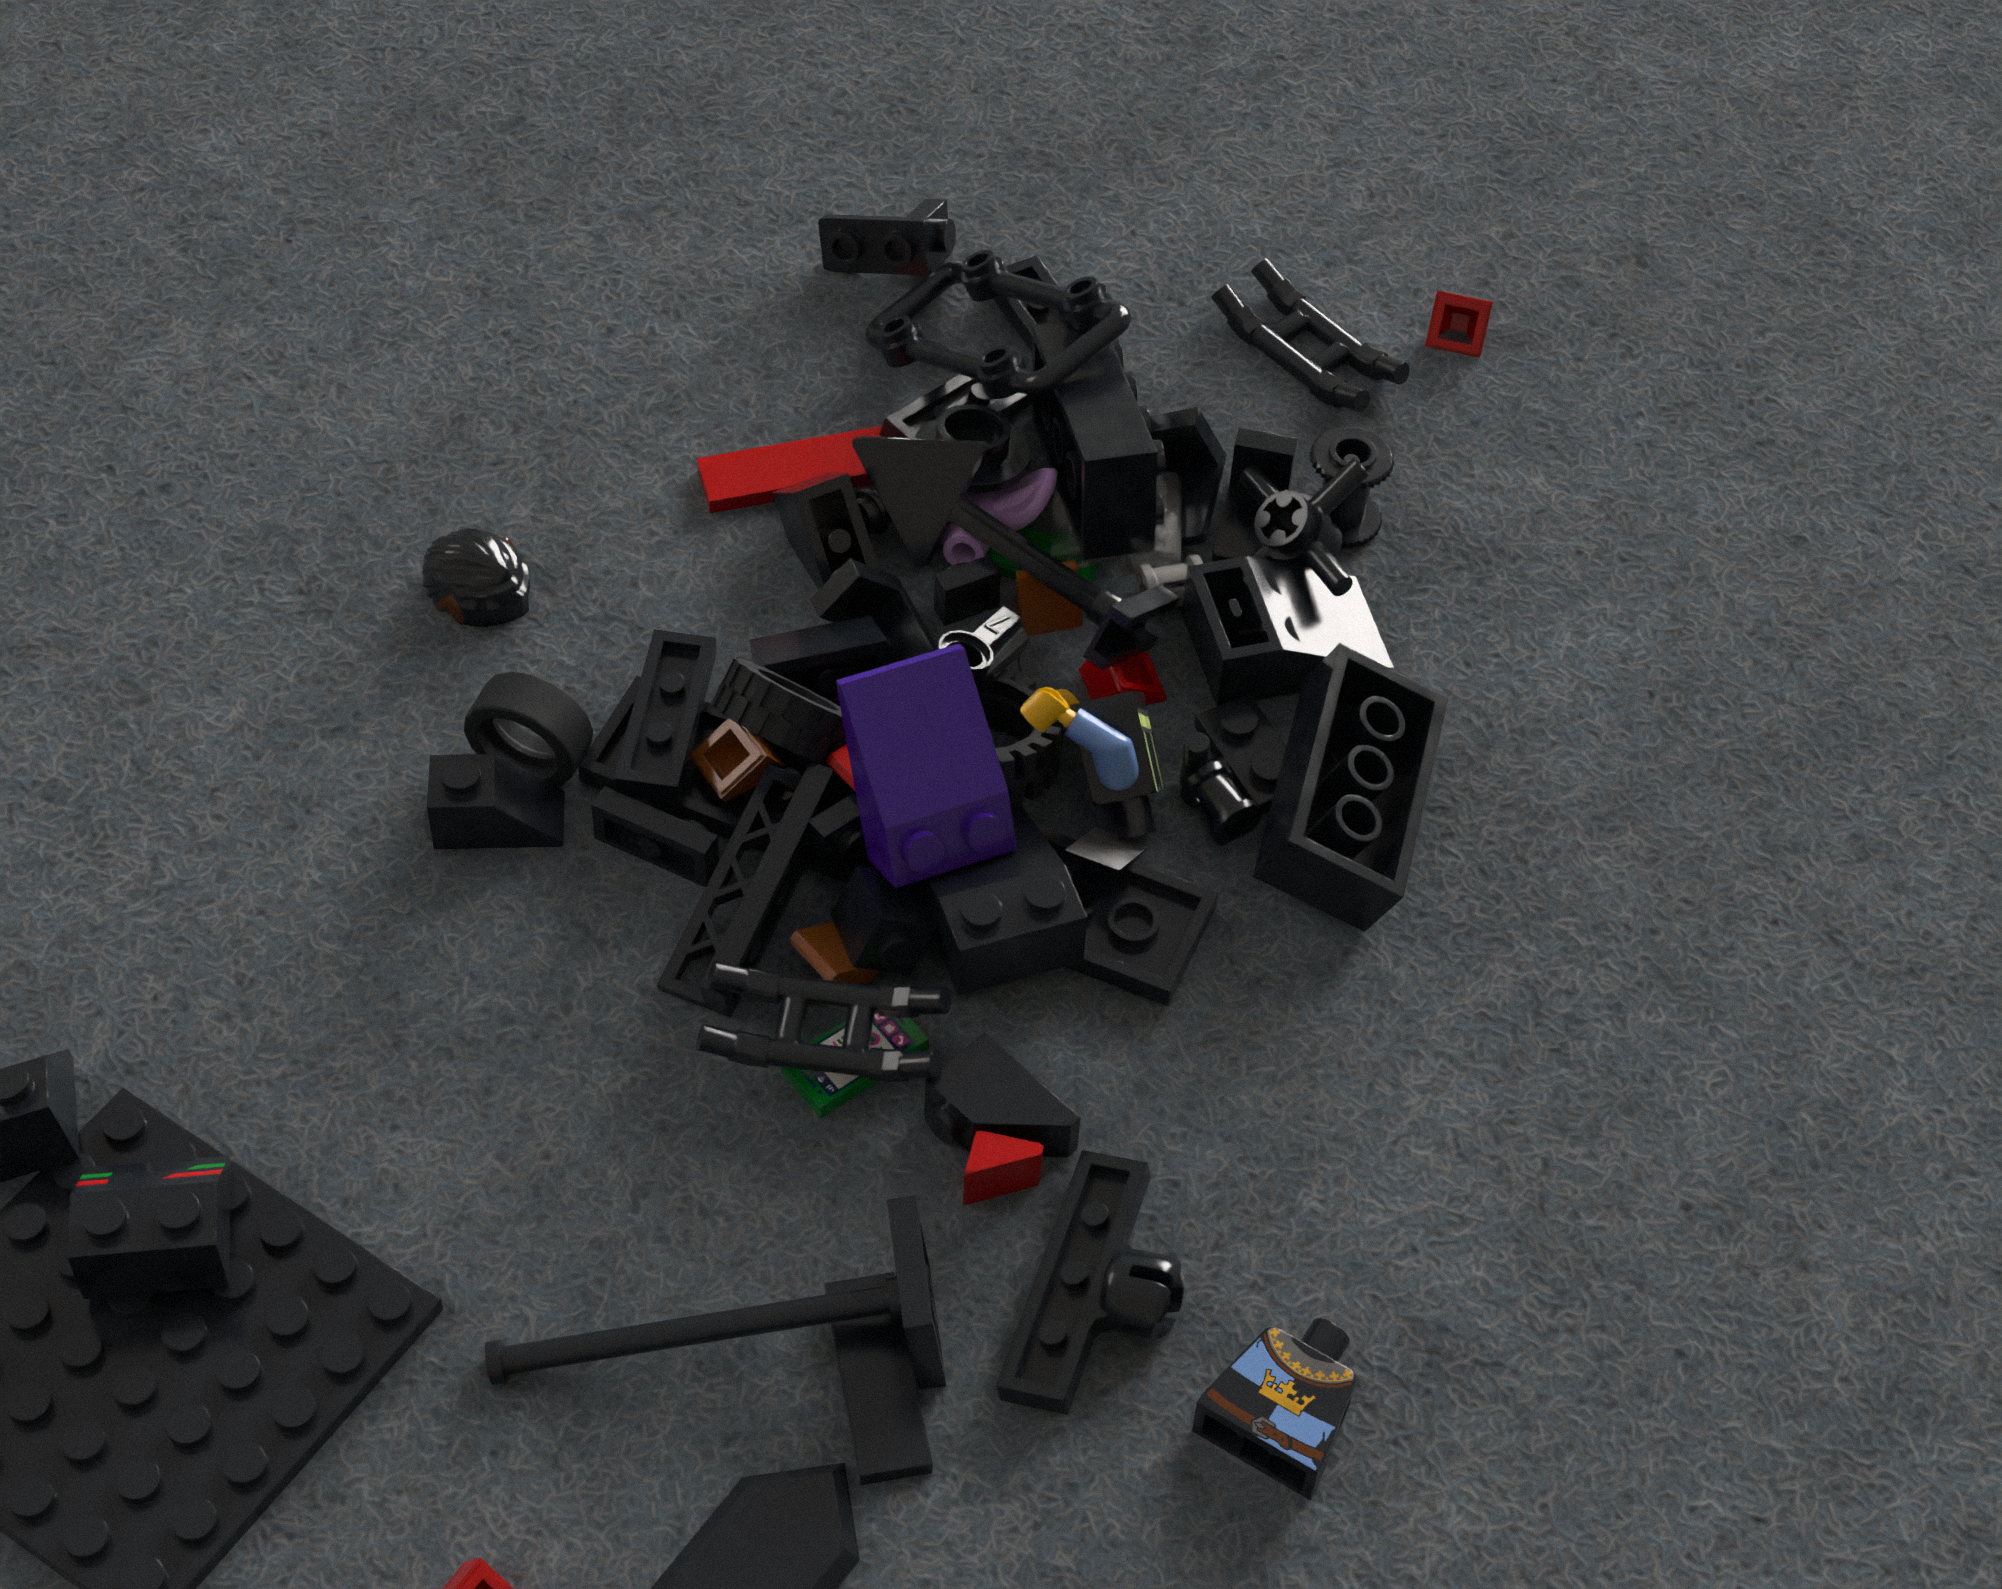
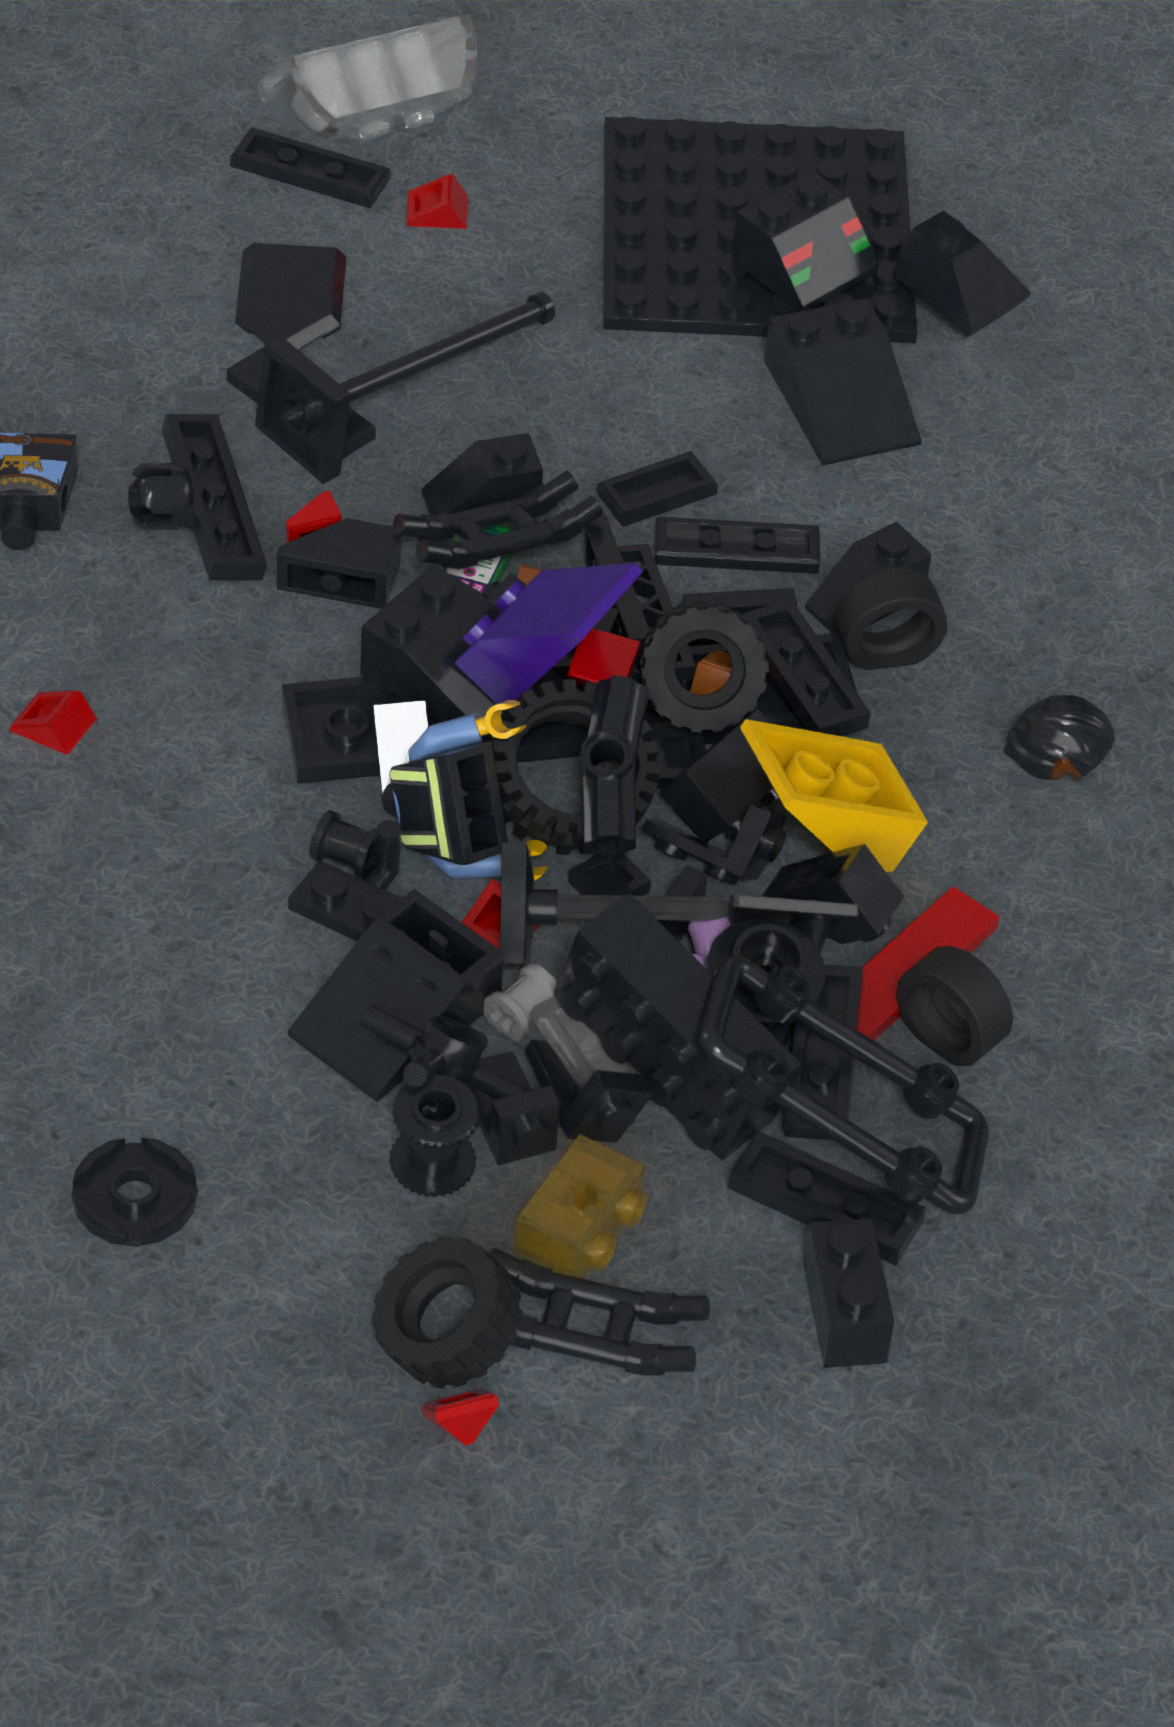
camera: 145 degrees right, 5 degrees down
(274, 1063) = (841, 381): none -> black slope
(567, 941) = (737, 545): none -> black tile
(584, 1051) = (656, 488): none -> black tile
(763, 565) = (839, 789): none -> yellow slope
(773, 1126) = (485, 475): none -> black slope
(828, 375) = (971, 988): none -> black tyre
(888, 243) = (1006, 1193): black bracket -> none
(1106, 237) = (848, 1293): none -> black brick
(1267, 393) = (581, 1210): none -> clear yellow brick
(1351, 788) = (245, 867): black brick -> none
(1409, 378) = (476, 1342): none -> black tyre
(1419, 1103) = (55, 719): none -> red slope
(1604, 635) = (139, 1220): none -> black tile

